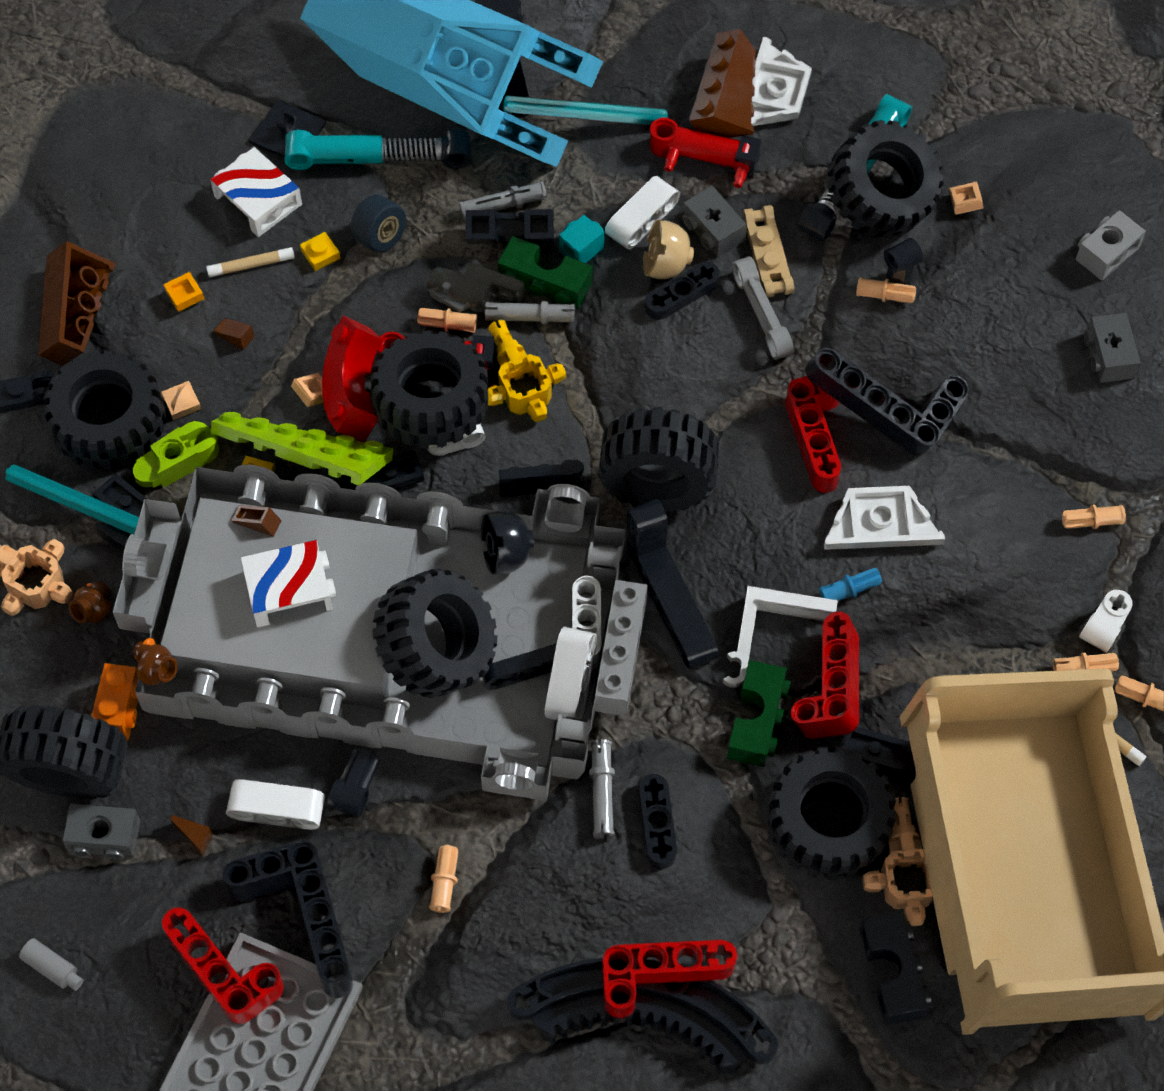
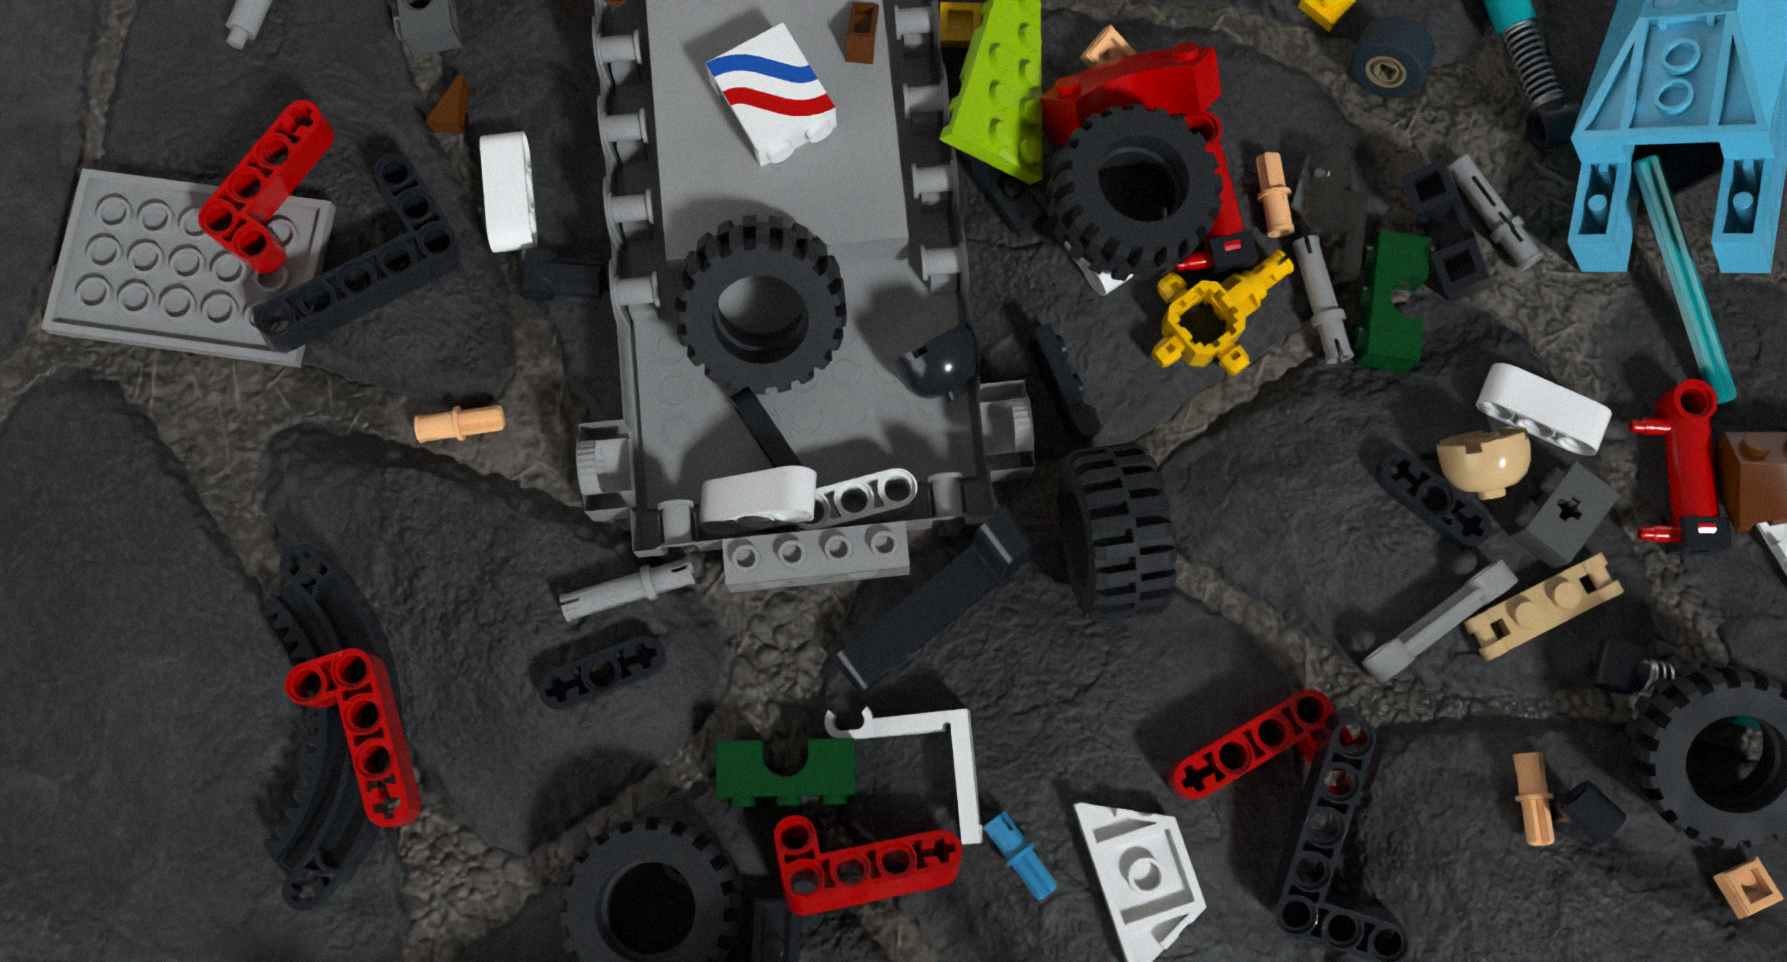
camera: 75 degrees right, 15 degrees up
(581, 239) = (1464, 336): teal brick -> none

